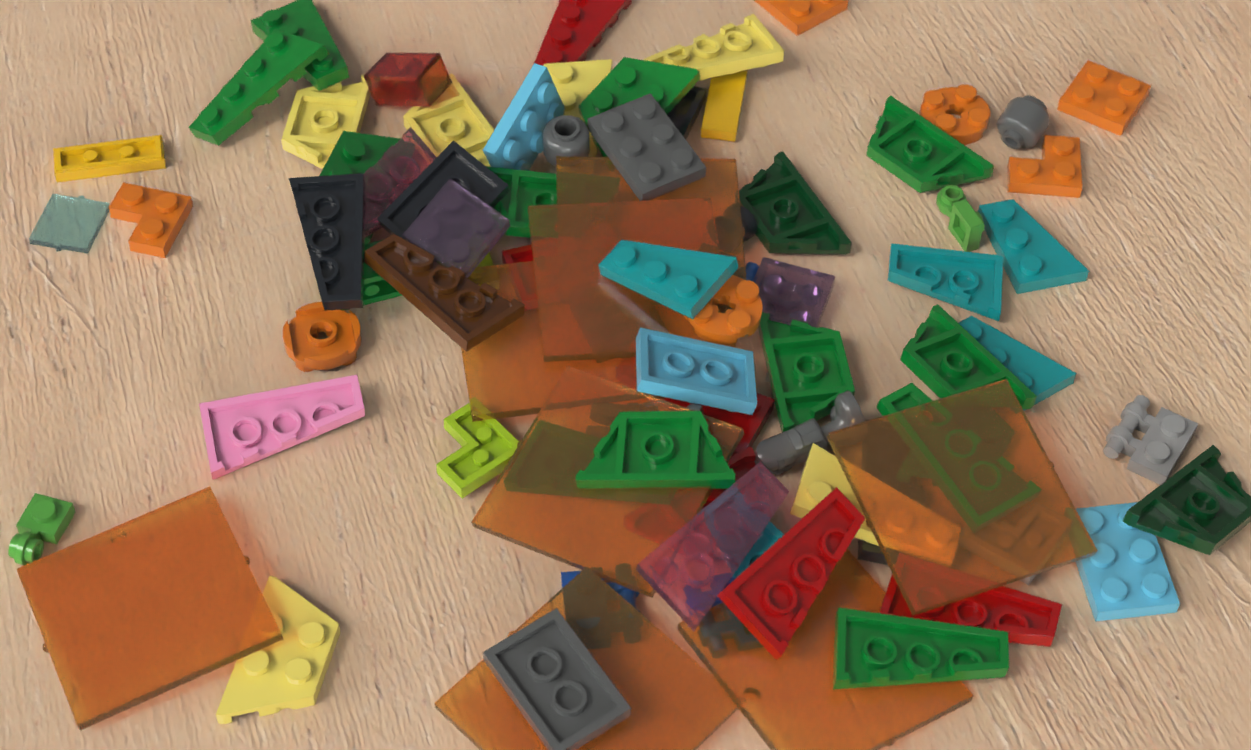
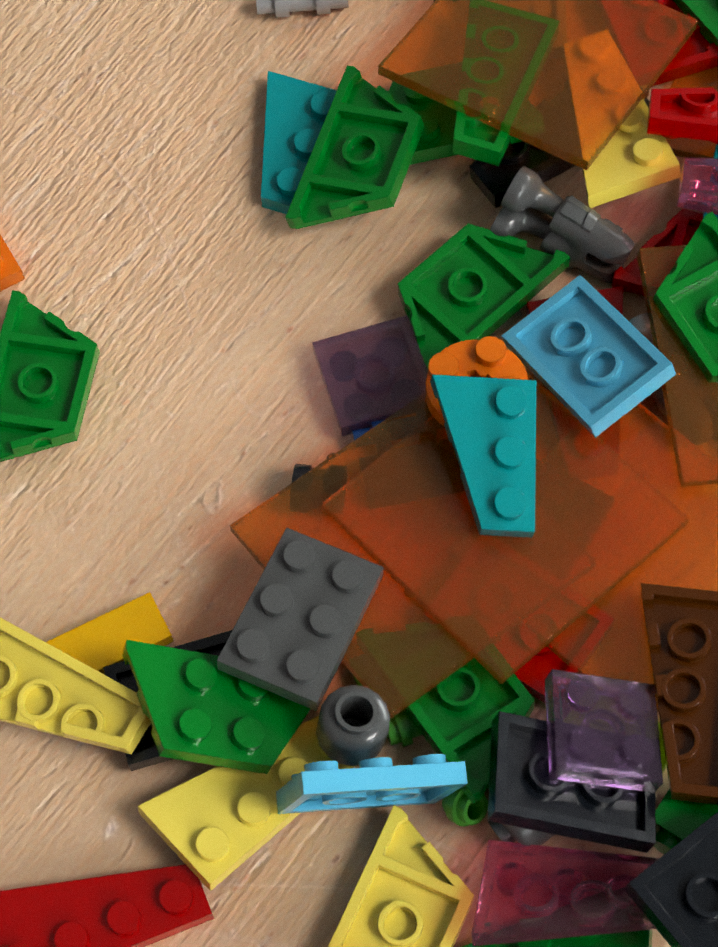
camera: 120 degrees left, 15 degrees up
(790, 213) = (239, 456): dark green wing -> none
(951, 276) = (216, 245): teal wing -> none
(964, 222) = (126, 274): bright green plate -> none
(1029, 252) = (110, 209): teal wing -> none

